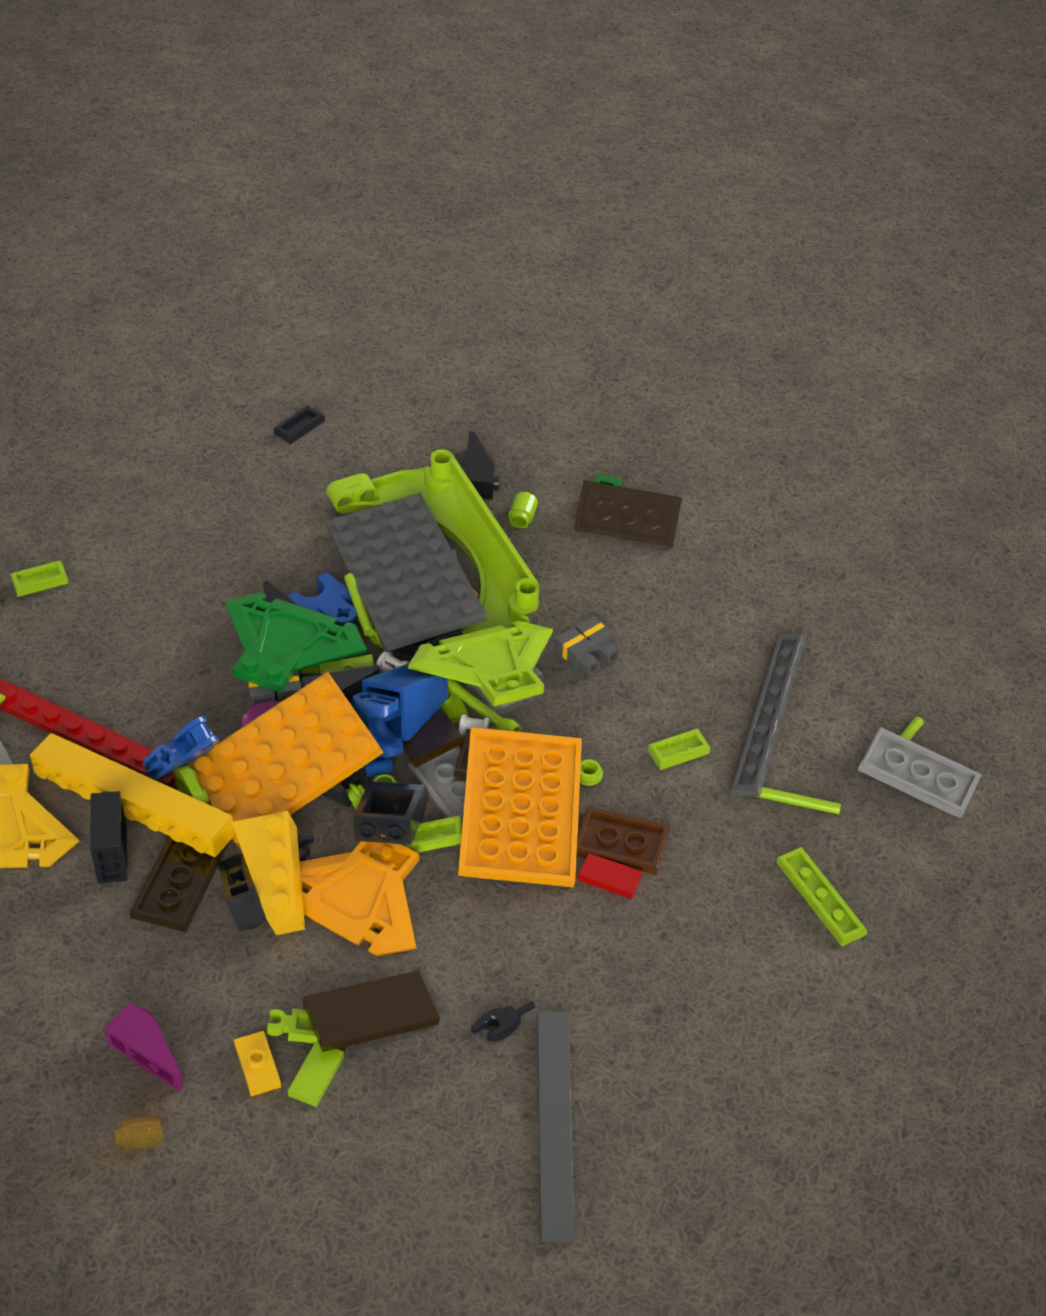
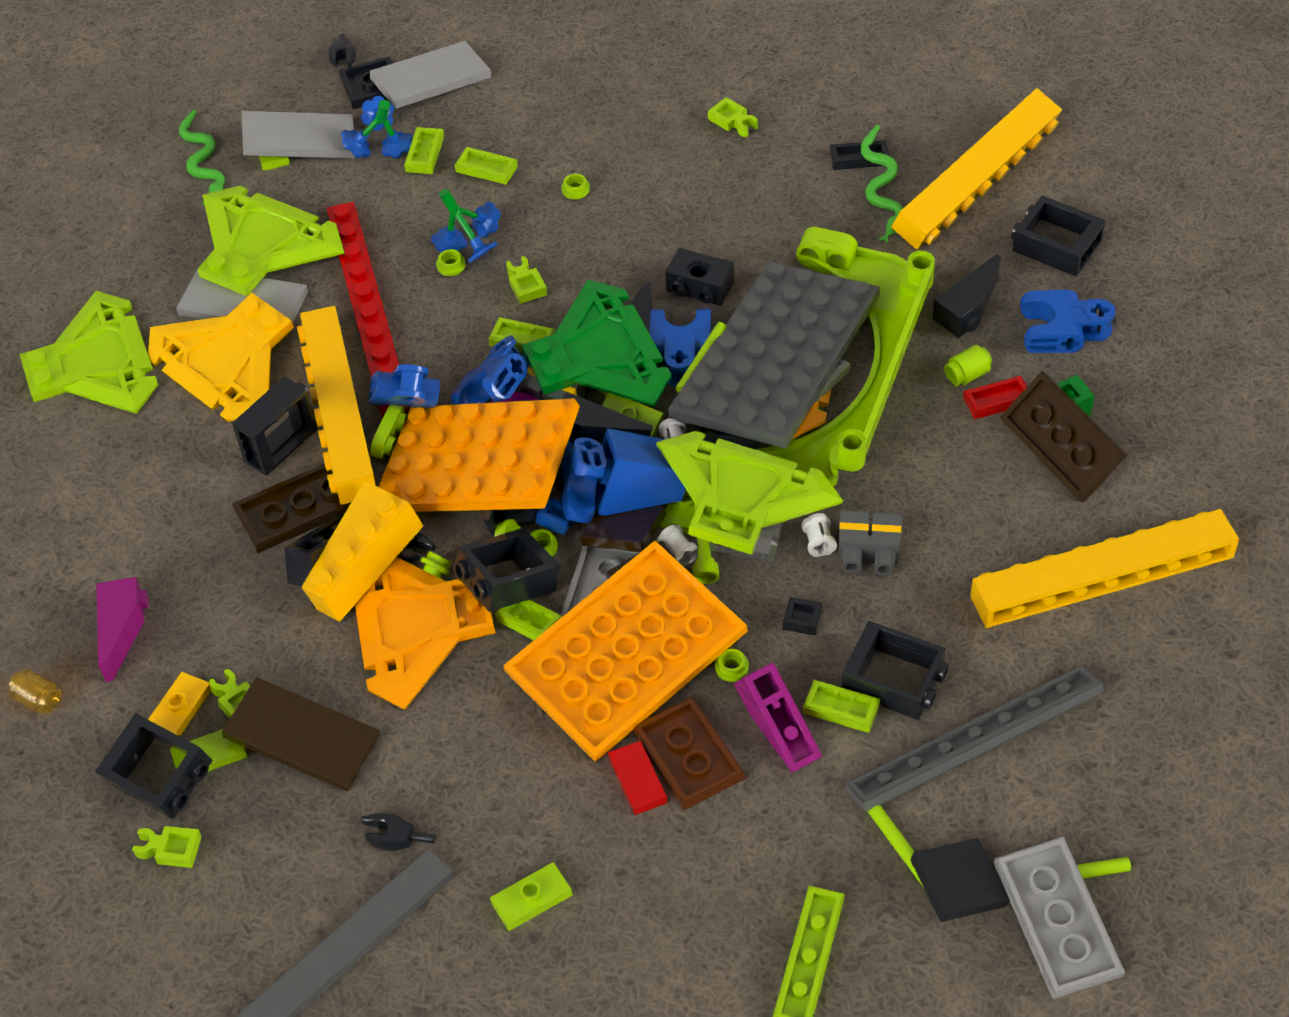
camera: 50 degrees right, 5 degrees up
(84, 614) = (484, 222): none -> blue plant
(93, 657) = (450, 262): none -> lime plate
(124, 554) = (575, 186): none -> lime plate
(169, 636) = (524, 282): none -> lime plate
(183, 446) = (732, 115): none -> lime plate
(207, 671) = (521, 331): none -> lime plate
(229, 701) = (495, 377): none -> blue piece
(289, 558) = (699, 276): none -> black brick
(301, 1131) = (129, 750): none -> black window
(331, 846) = (436, 564): none -> lime plate
(367, 1143) = (173, 848): none -> lime plate
(373, 452) = (881, 180): none -> bright green animal
(392, 390) = (976, 169): none -> yellow brick
(486, 414) = (1049, 251): none -> black window
(553, 448) = (1068, 320): none -> blue piece
(553, 663) = (819, 535): none -> white bush
(557, 519) = (993, 397): none -> red tile
(594, 717) = (802, 616): none -> black tile
(630, 989) = (531, 896): none -> lime plate
(648, 778) = (778, 717): none -> magenta slope
(670, 692) = (902, 646): none -> black window
(730, 575) = (1103, 567): none -> yellow brick
(850, 792) = (959, 880): none -> black tile

